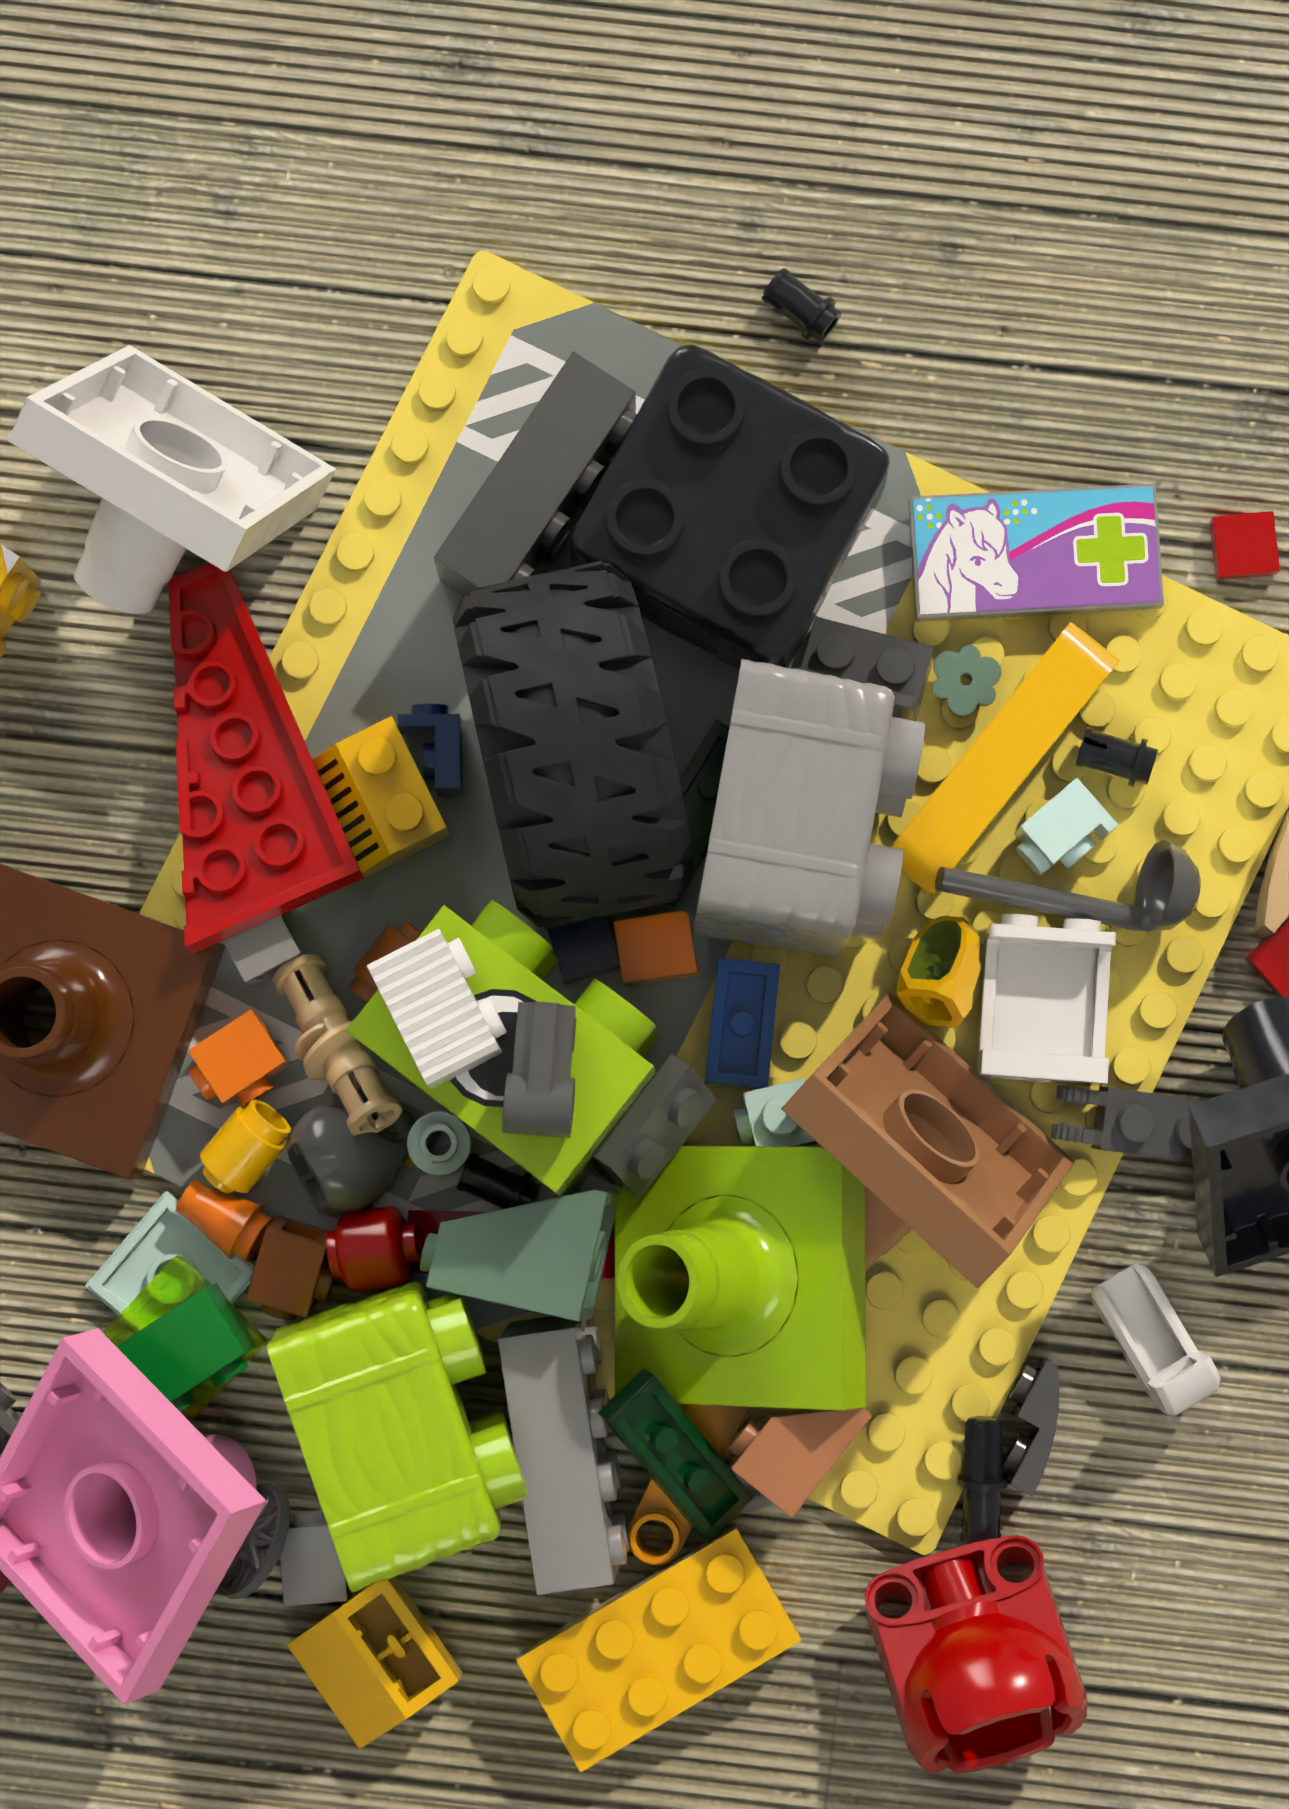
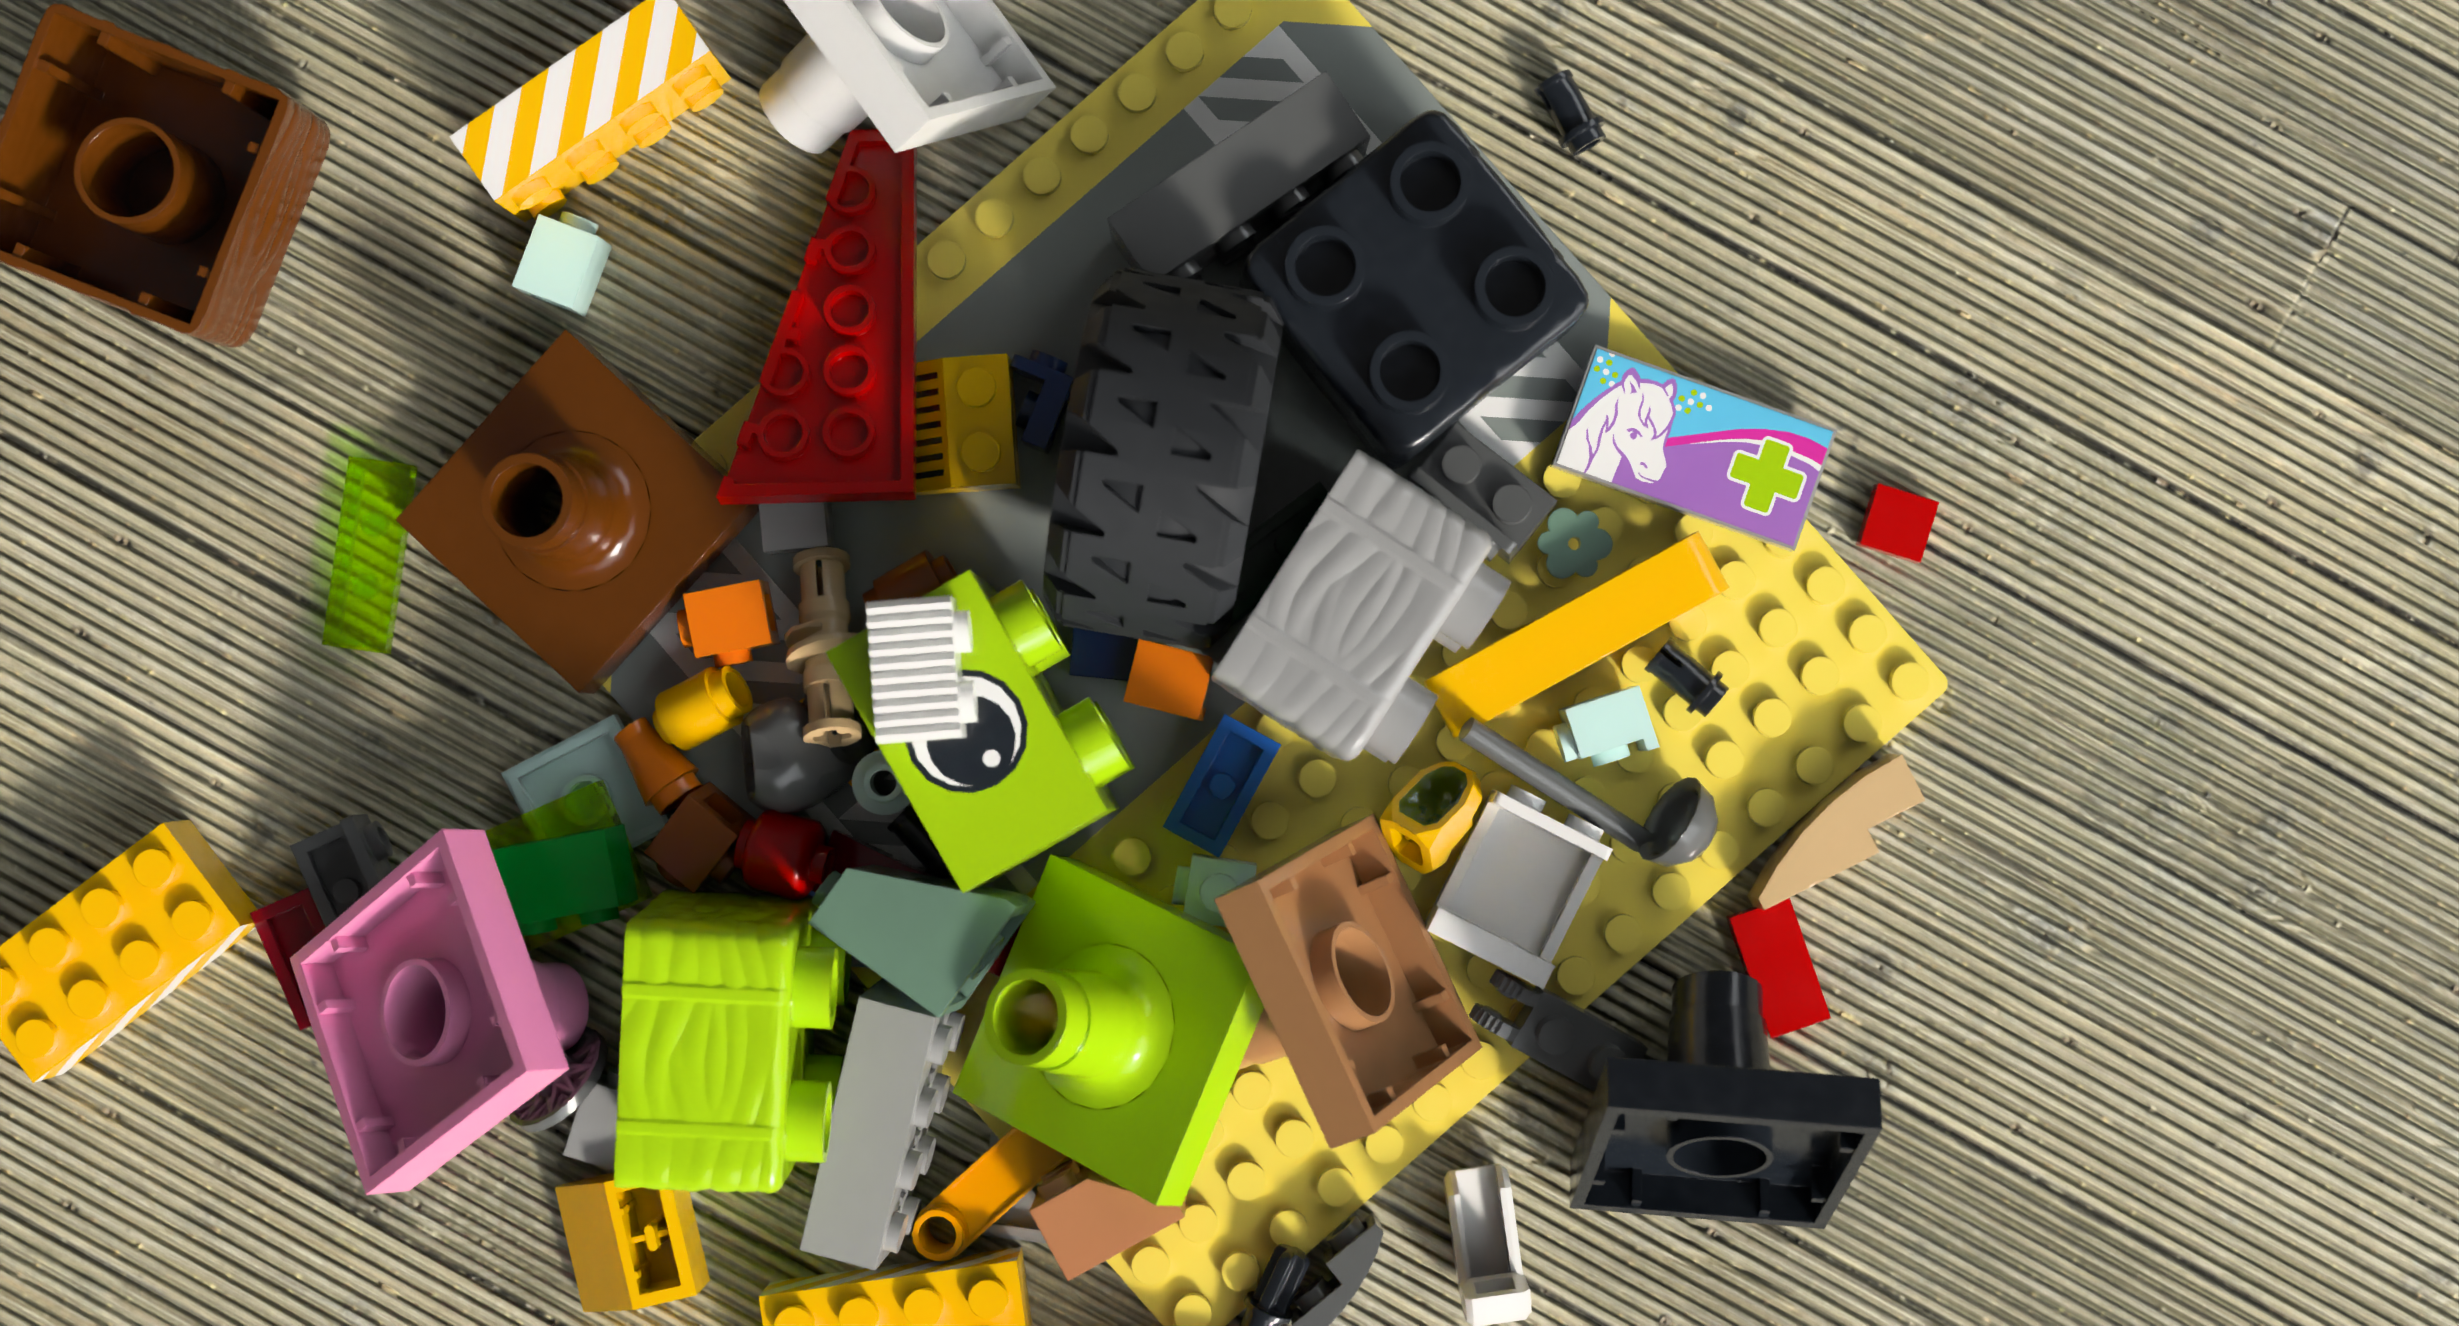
camera: 20 degrees right, 5 degrees up
(540, 1088) = (987, 788): dark grey piece -> none
(653, 1127) = (1091, 858): dark grey bracket -> none
(675, 1454) = (985, 1168): dark green tile -> none

